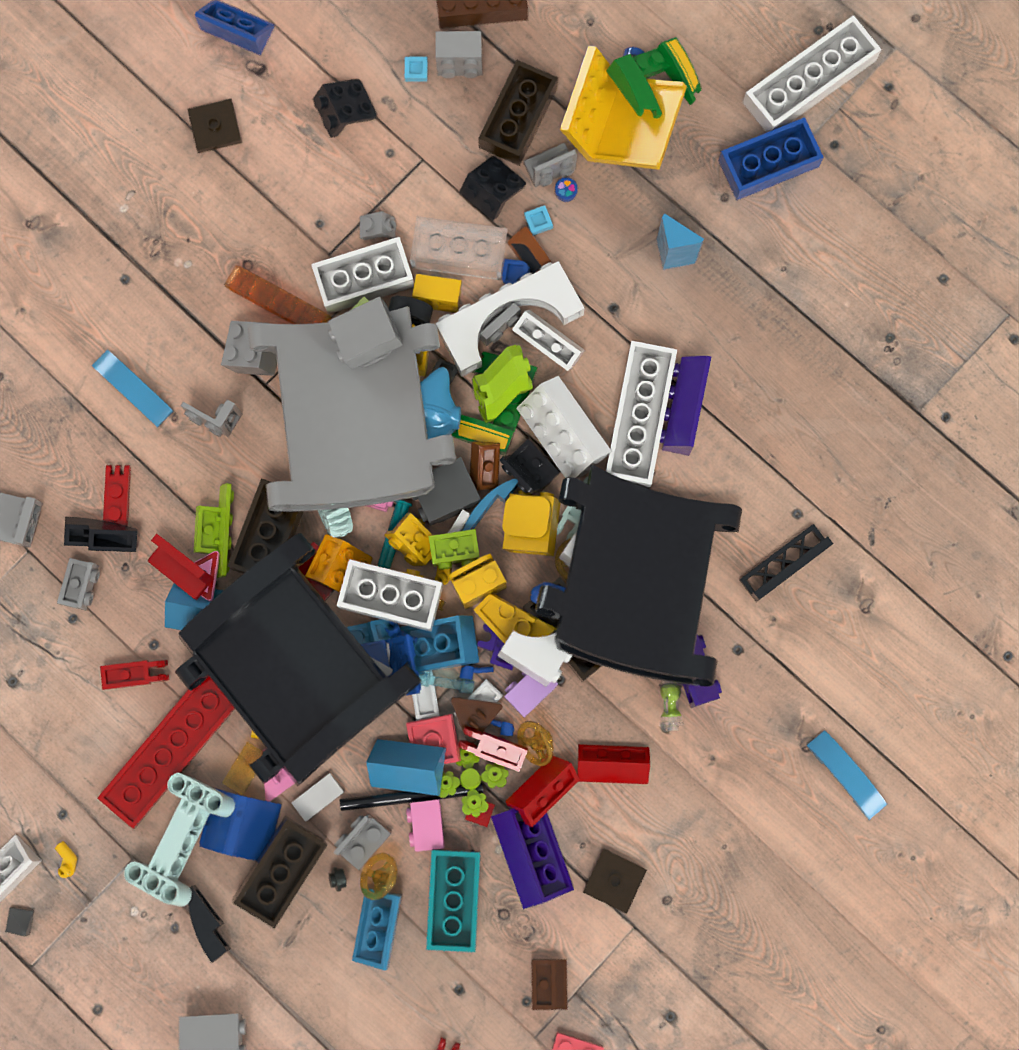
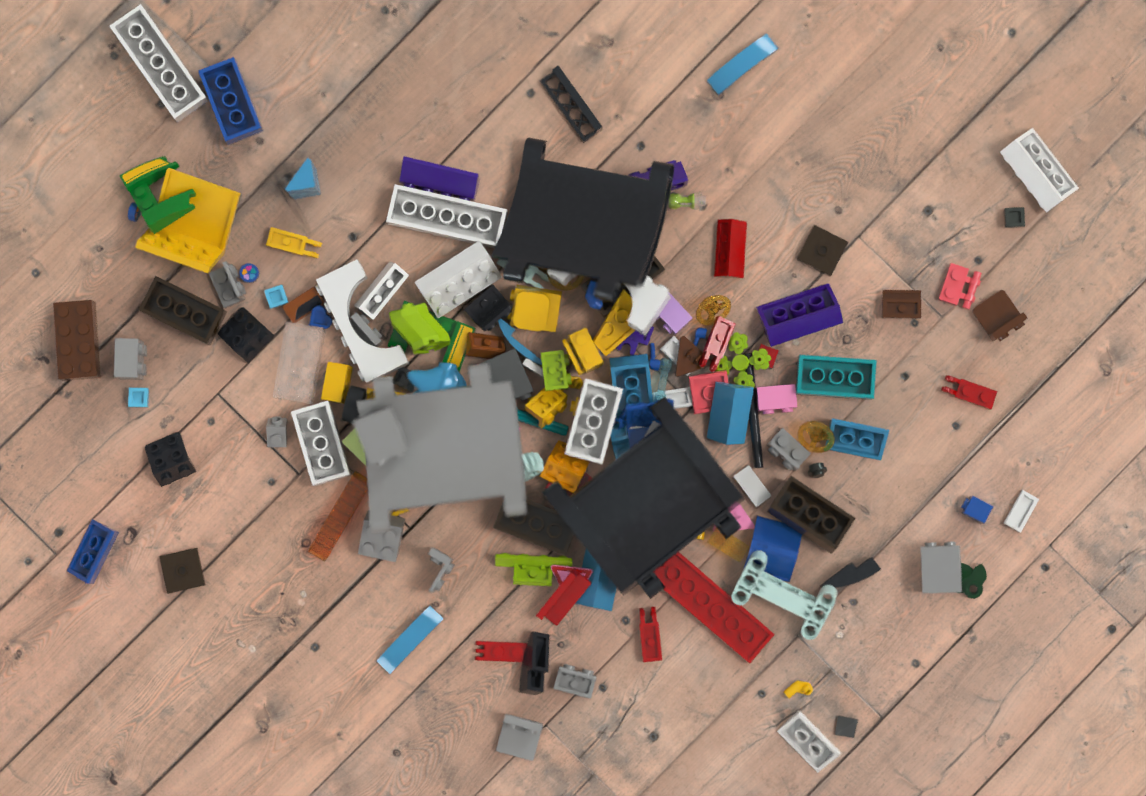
camera: 85 degrees left, 5 degrees up
(543, 790) = (750, 304): red panel -> none
(603, 235) = (291, 242): none -> yellow hinge

